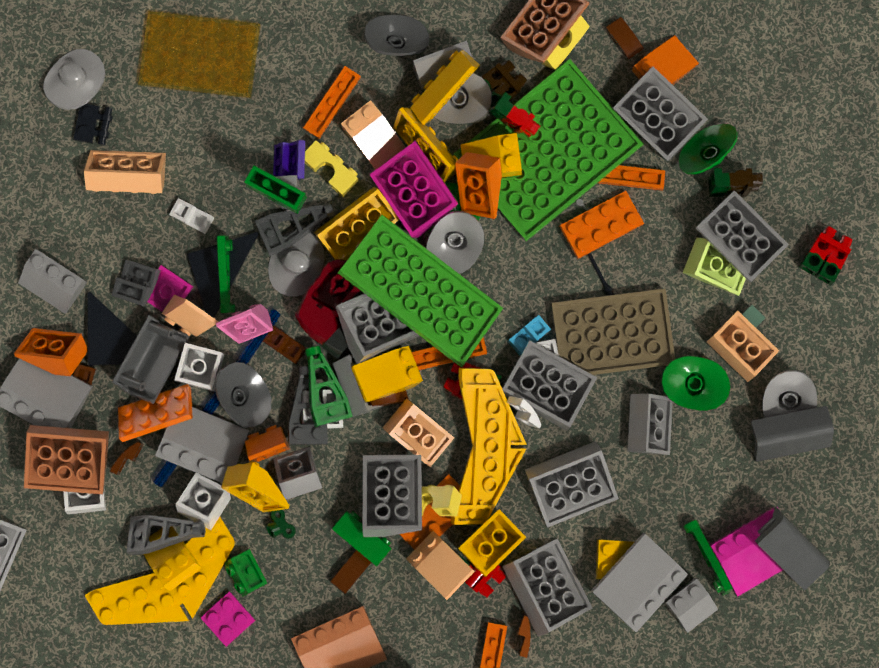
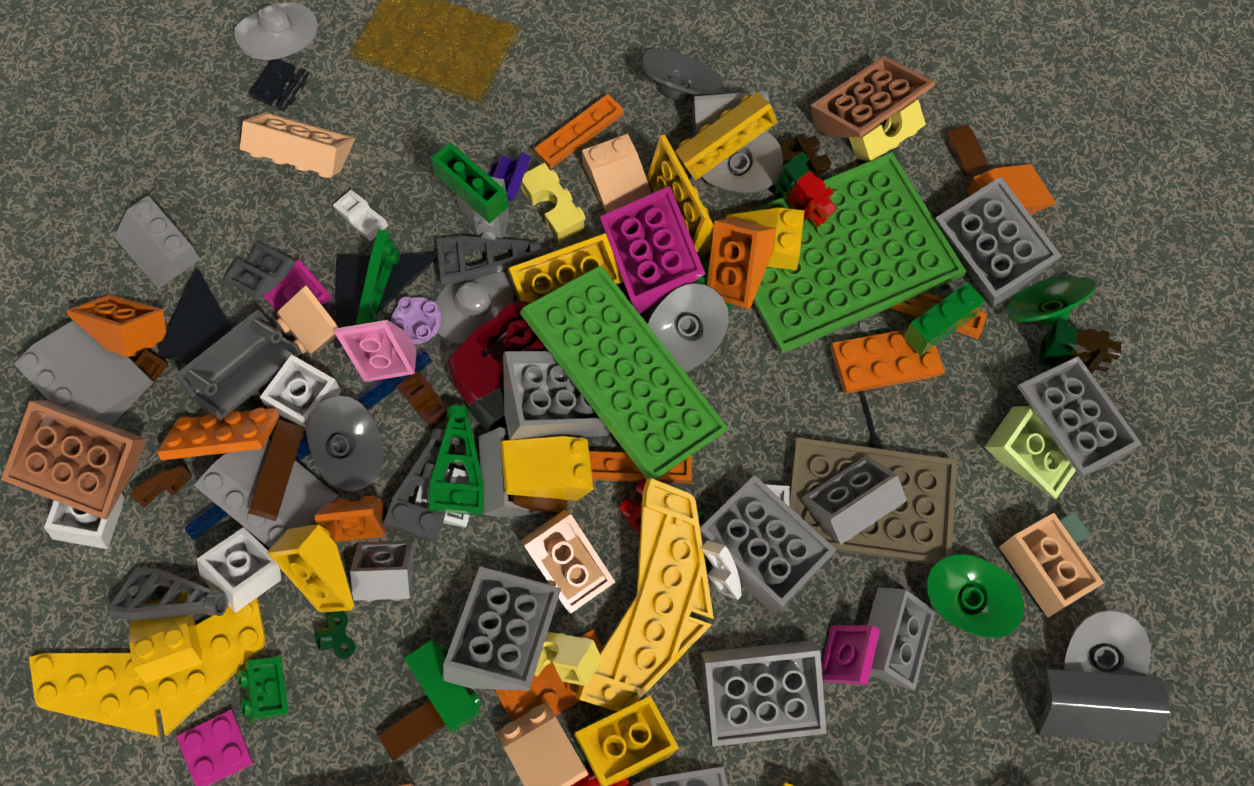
camera: 15 degrees right, 15 degrees down
(204, 427) = (276, 470): none -> reddish brown tile
(259, 287) = (418, 318): none -> lavender dish
(532, 331) = (765, 467): medium azure slope -> none
(601, 338) = (855, 499): none -> light grey slope
(621, 445) = (849, 654): none -> dark pink plate
(635, 187) = (944, 318): none -> green brick
(831, 251) = (1198, 472): hips -> none

